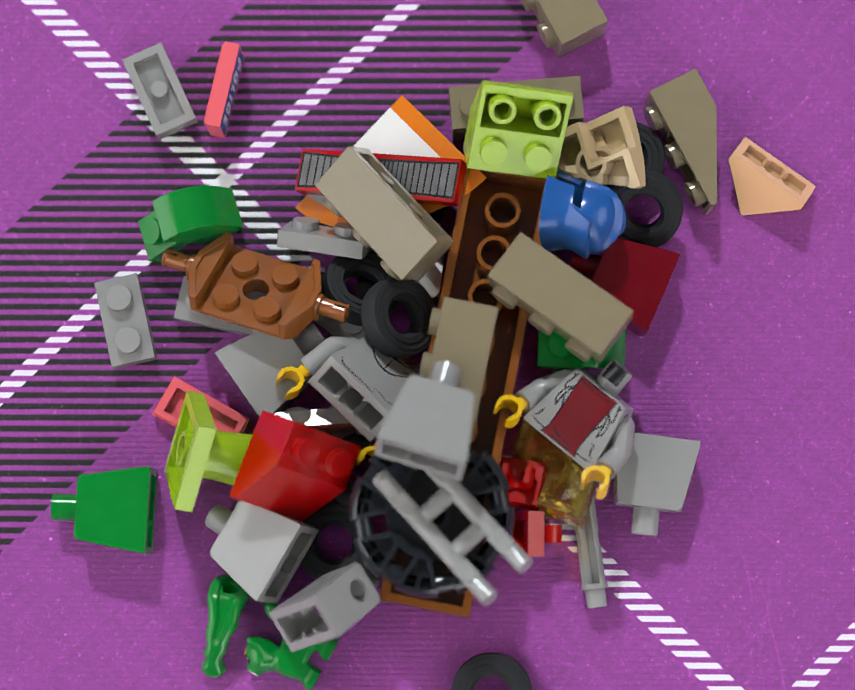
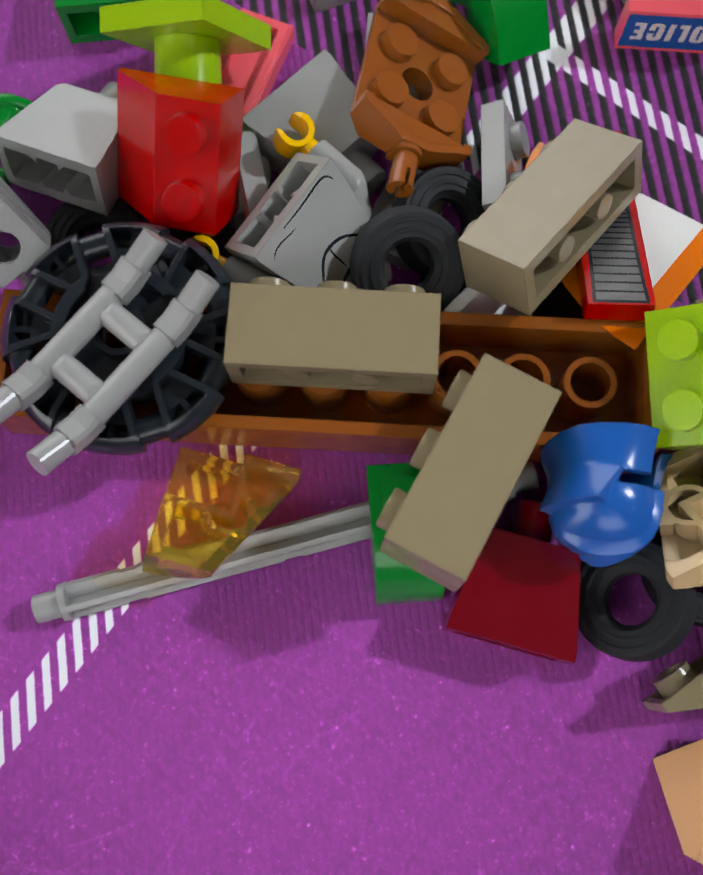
camera: 80 degrees right, 5 degrees down
(430, 423) = (236, 280): light grey torso -> none
(525, 480) = (198, 469): red tile -> none
(532, 533) = (130, 500): red tile -> none
(580, 418) = (292, 539): torso -> none
(655, 479) = (229, 664): light grey torso -> none

